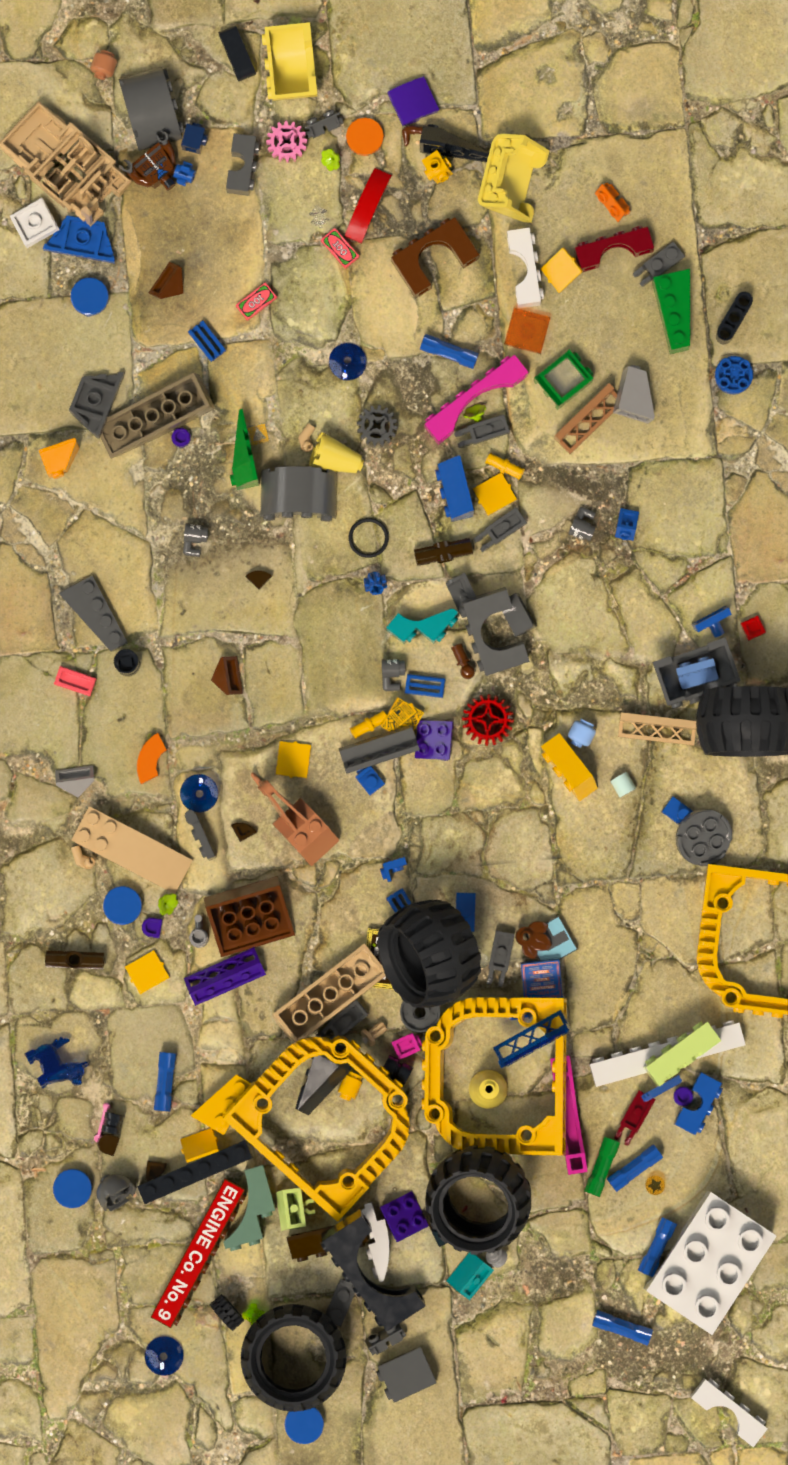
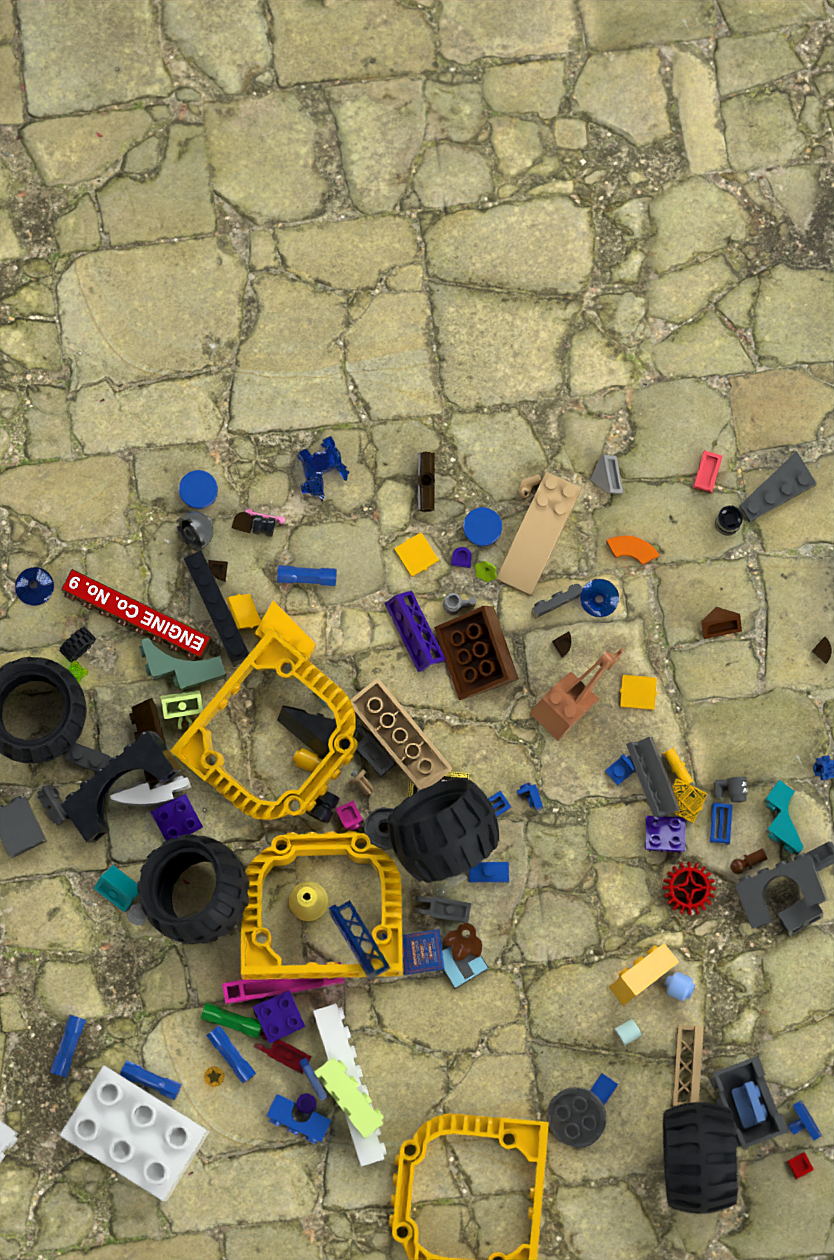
camera: 85 degrees right, 5 degrees down
(600, 1120) = (279, 1016): none -> dark purple hinge

